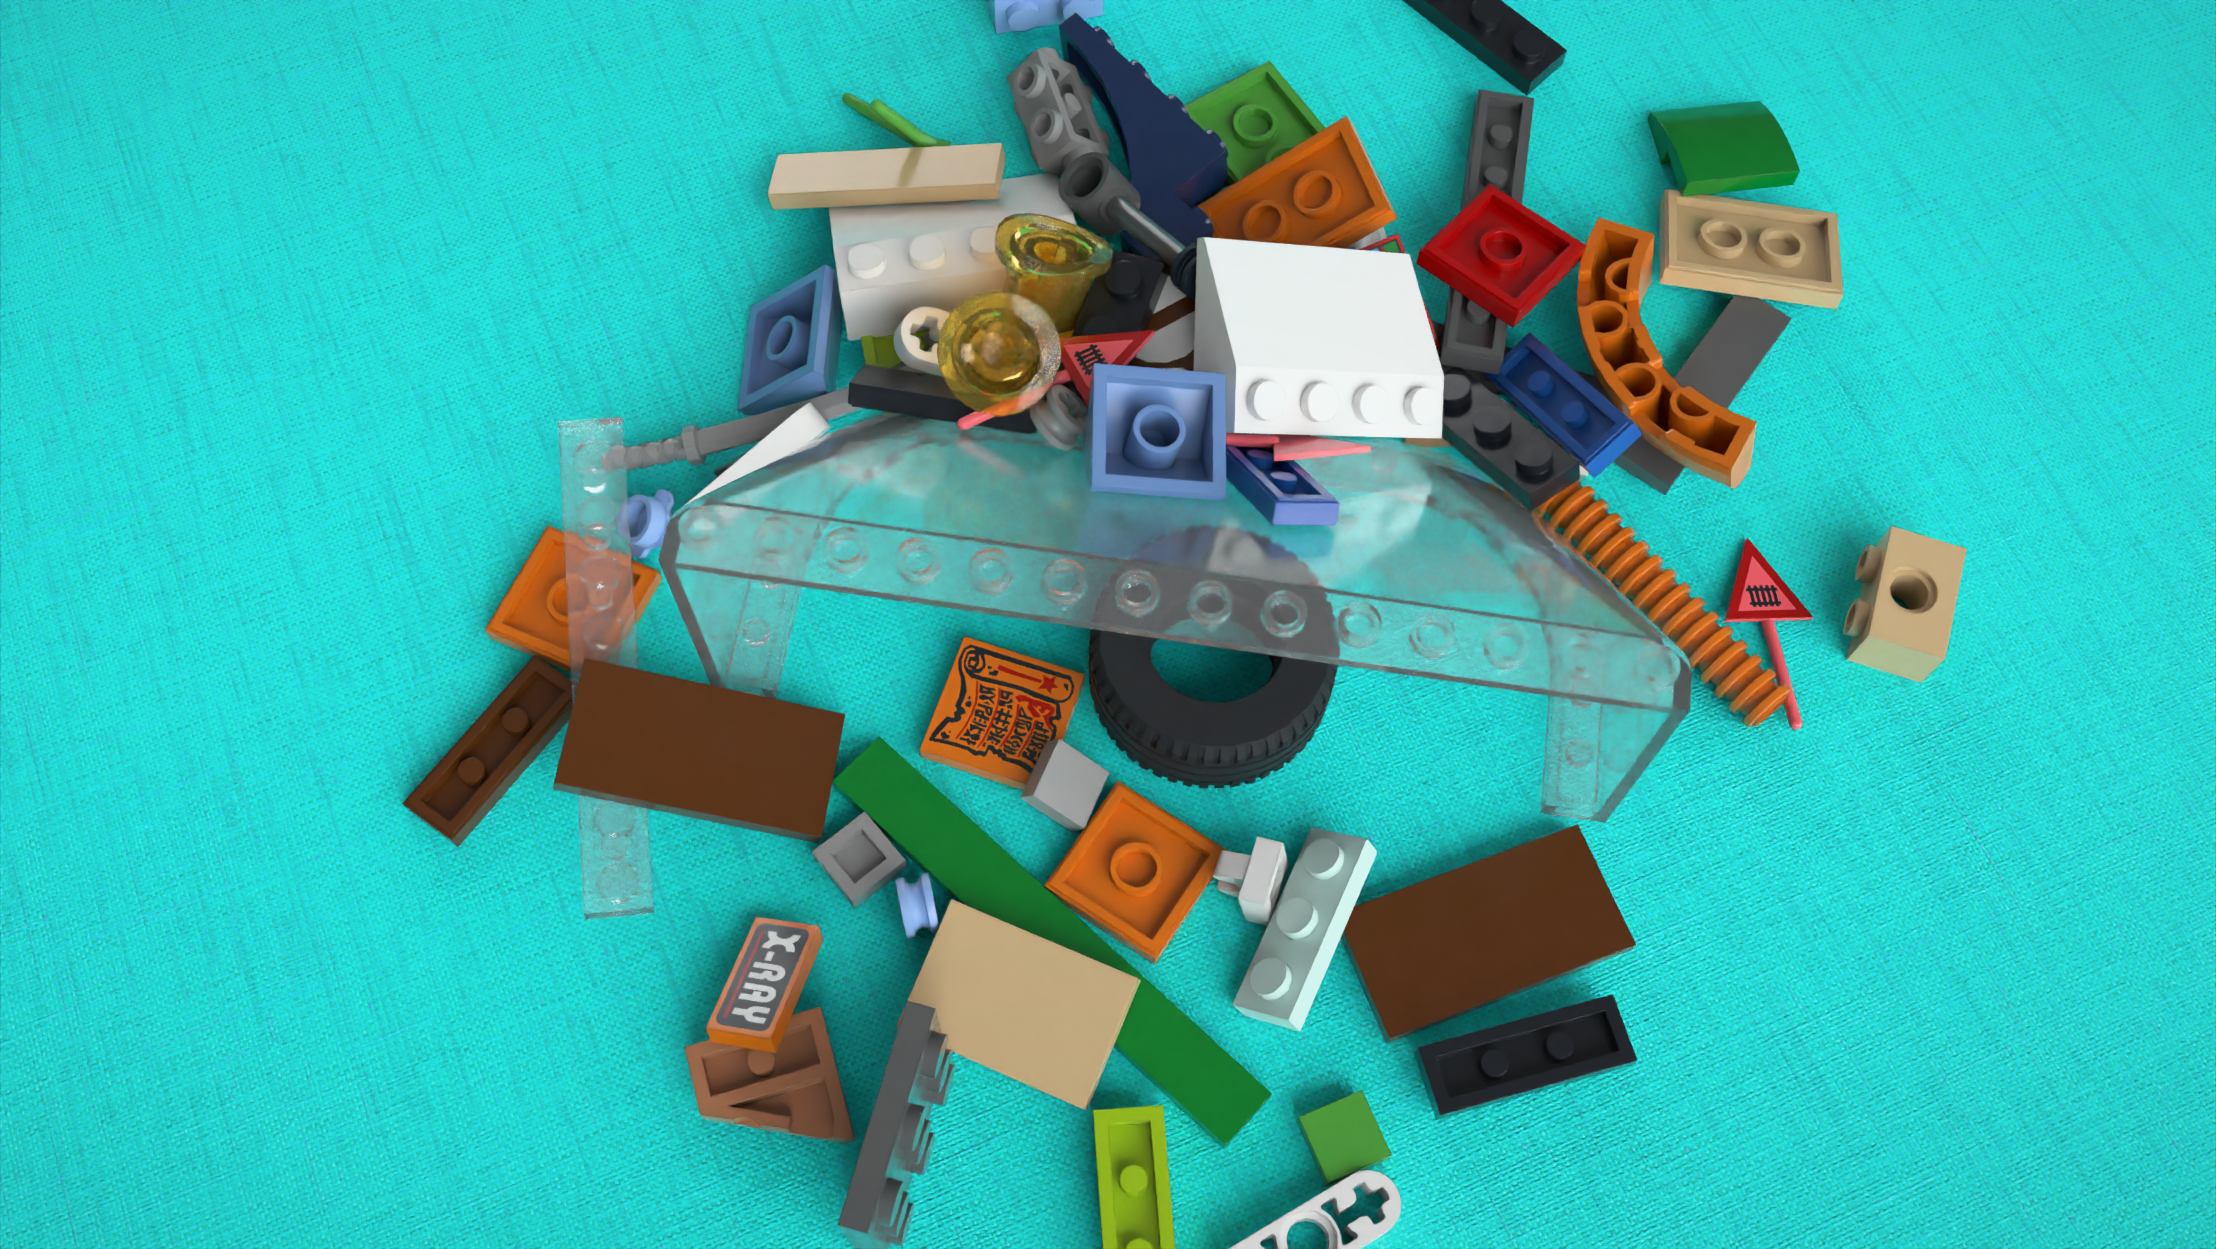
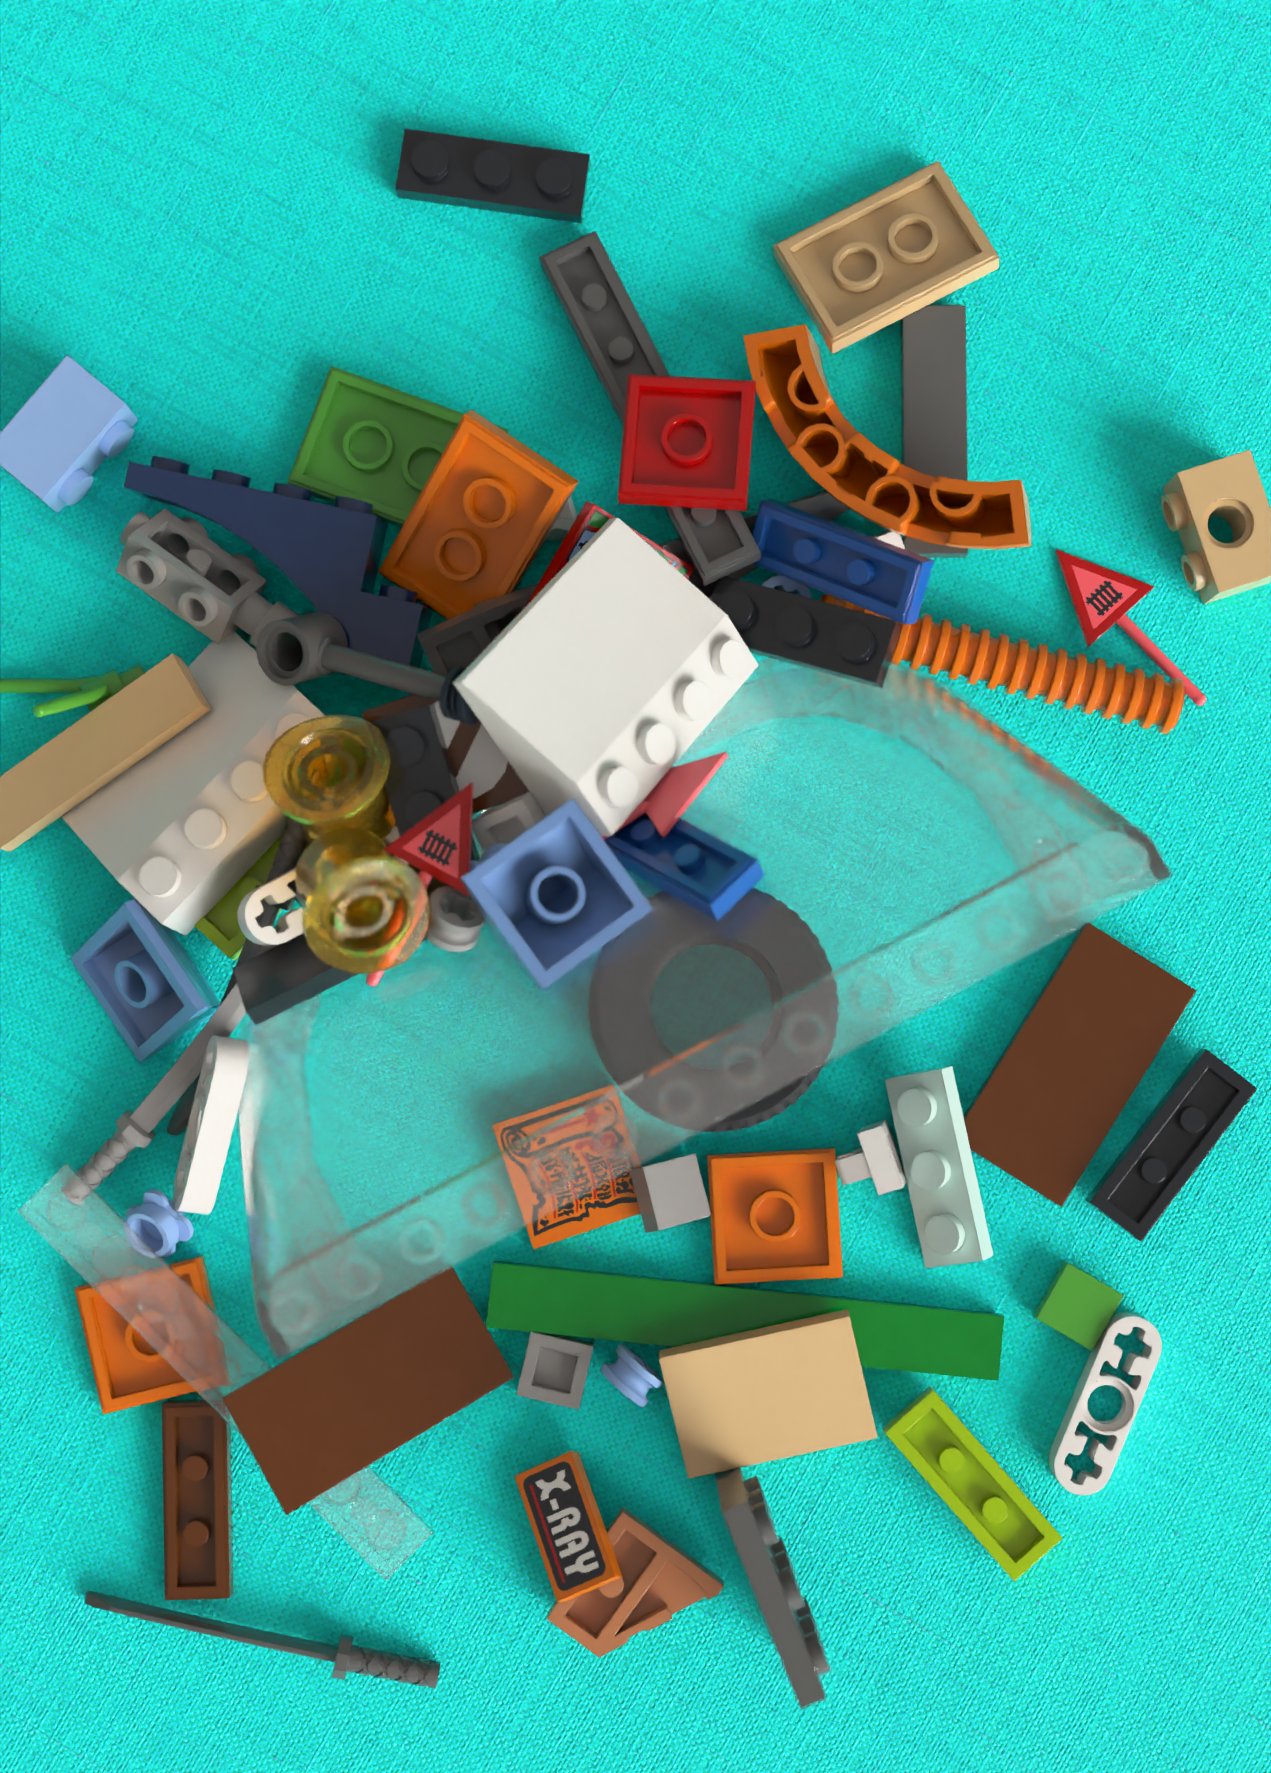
camera: 35 degrees left, 20 degrees up
(496, 957) = (345, 1655): none -> dark grey sword
(1724, 148) = (795, 160): green slope -> none

